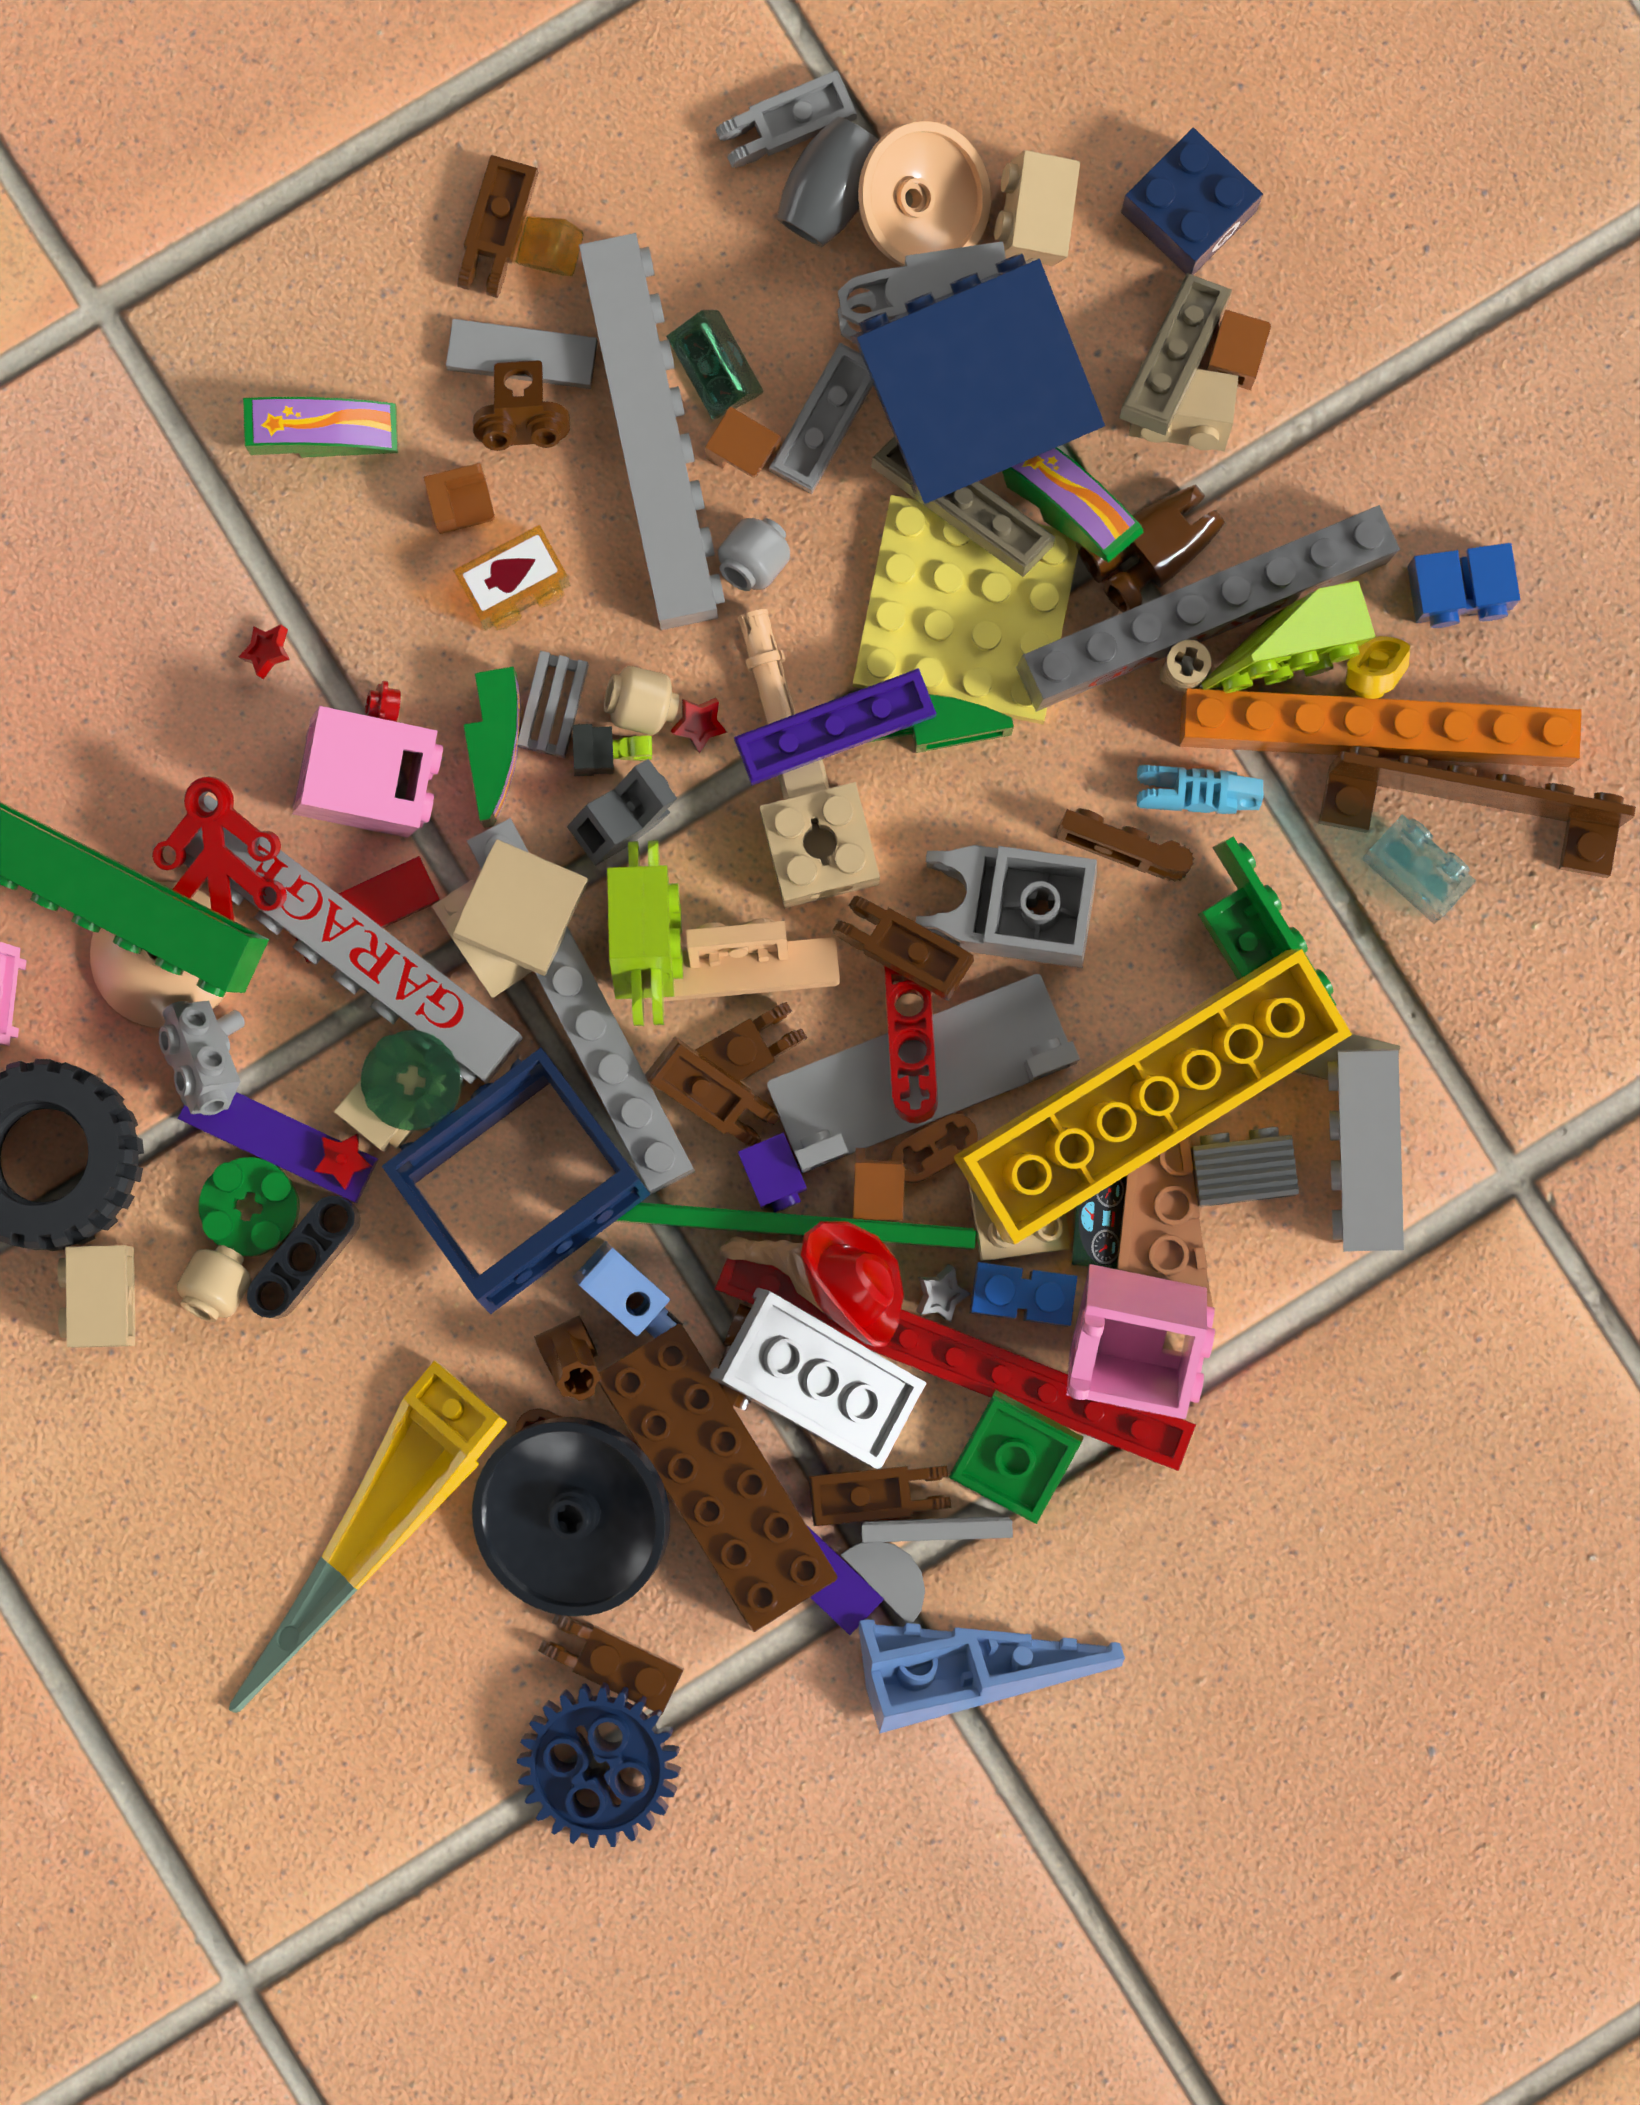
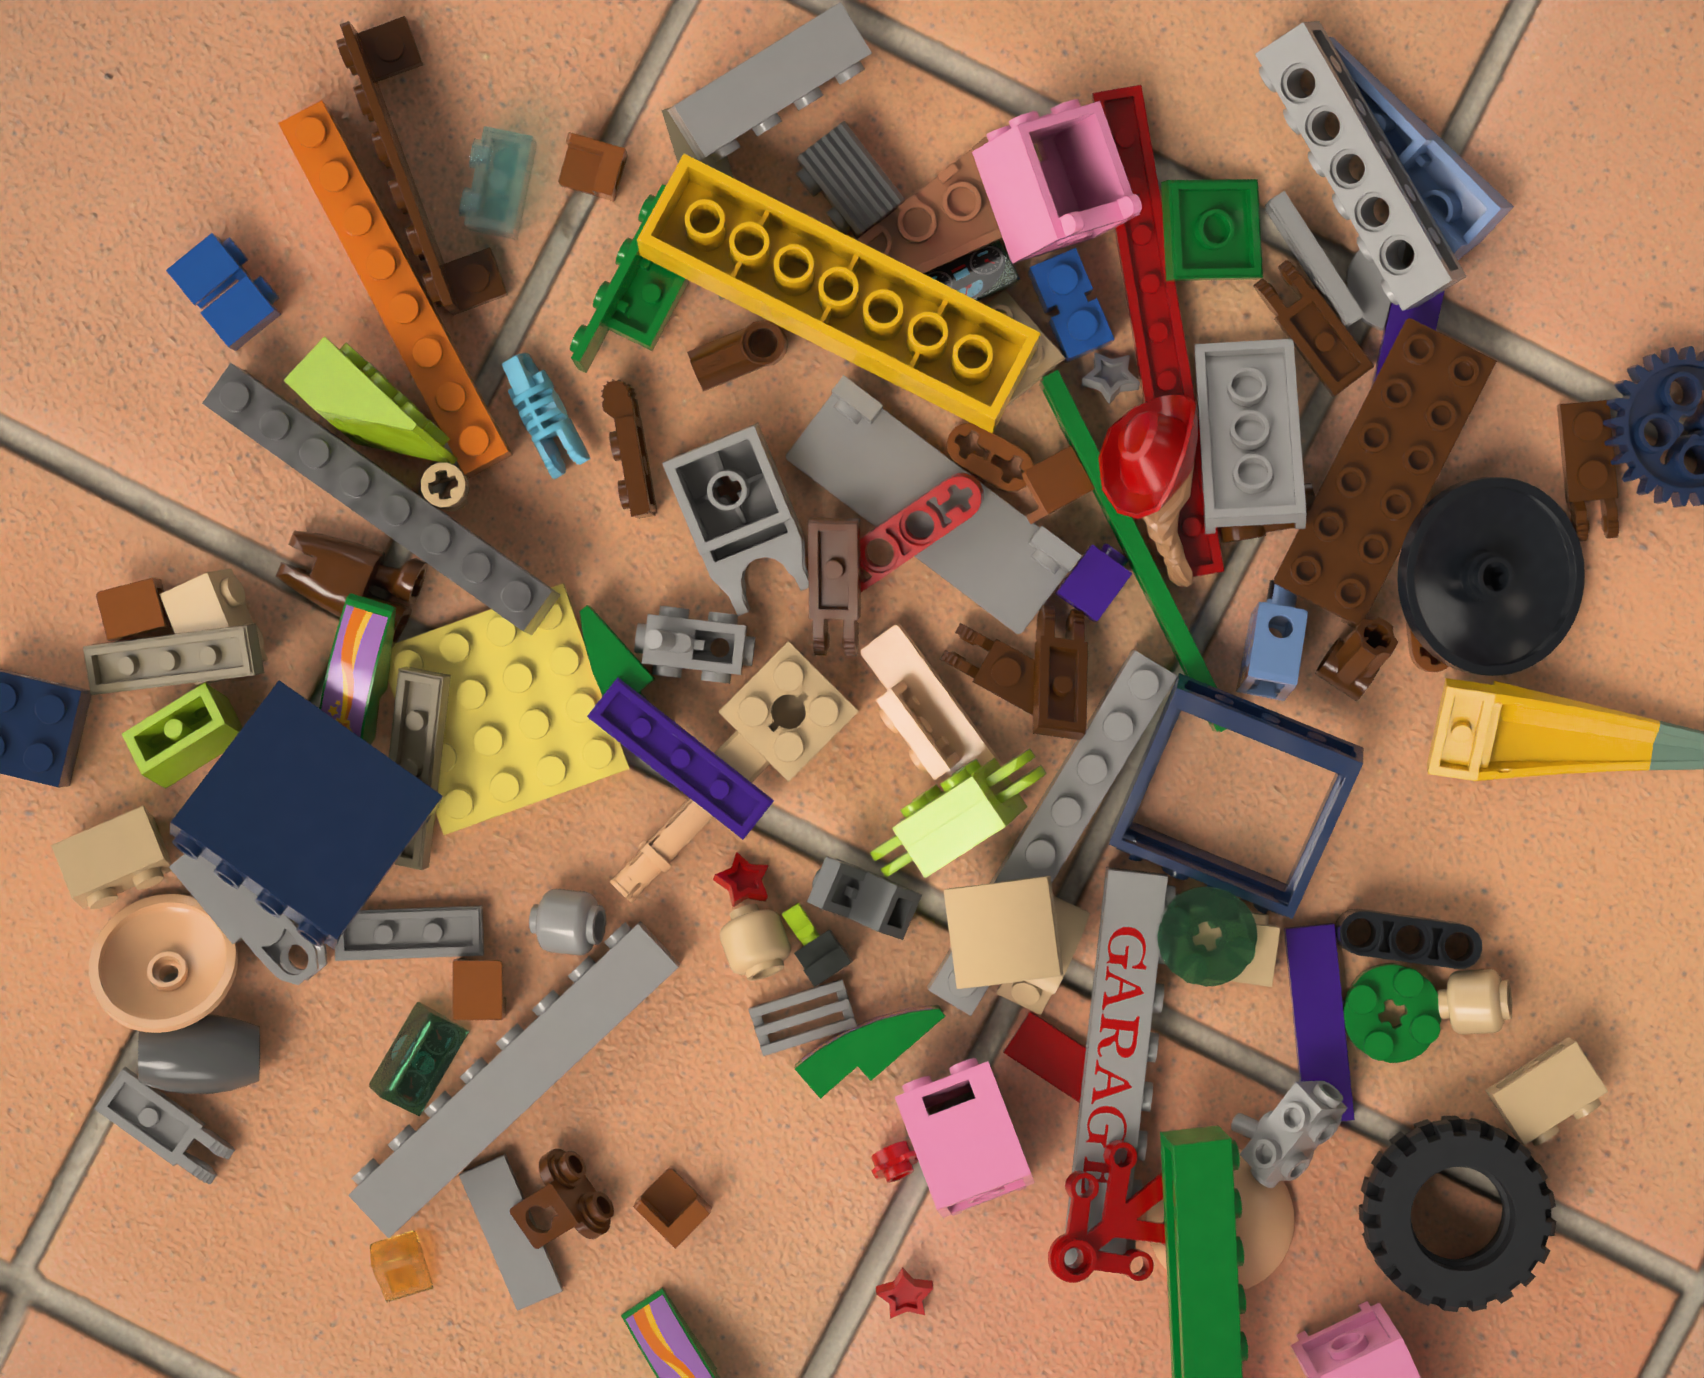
camera: 120 degrees left, 5 degrees up
(342, 1159) = (1305, 956): red piece -> none
(497, 220) = (406, 1324): reddish brown hinge -> none
(513, 579) = (716, 1117): brick -> none
(935, 786) = (676, 642): none -> light grey brick
(974, 1633) = (1384, 175): none -> light grey brick
(1107, 325) = (183, 735): none -> lime brick
(1151, 981) = (733, 355): none -> reddish brown piece
(1378, 666) = (344, 321): yellow plate -> none
(1385, 958) = (592, 166): none -> dark orange panel

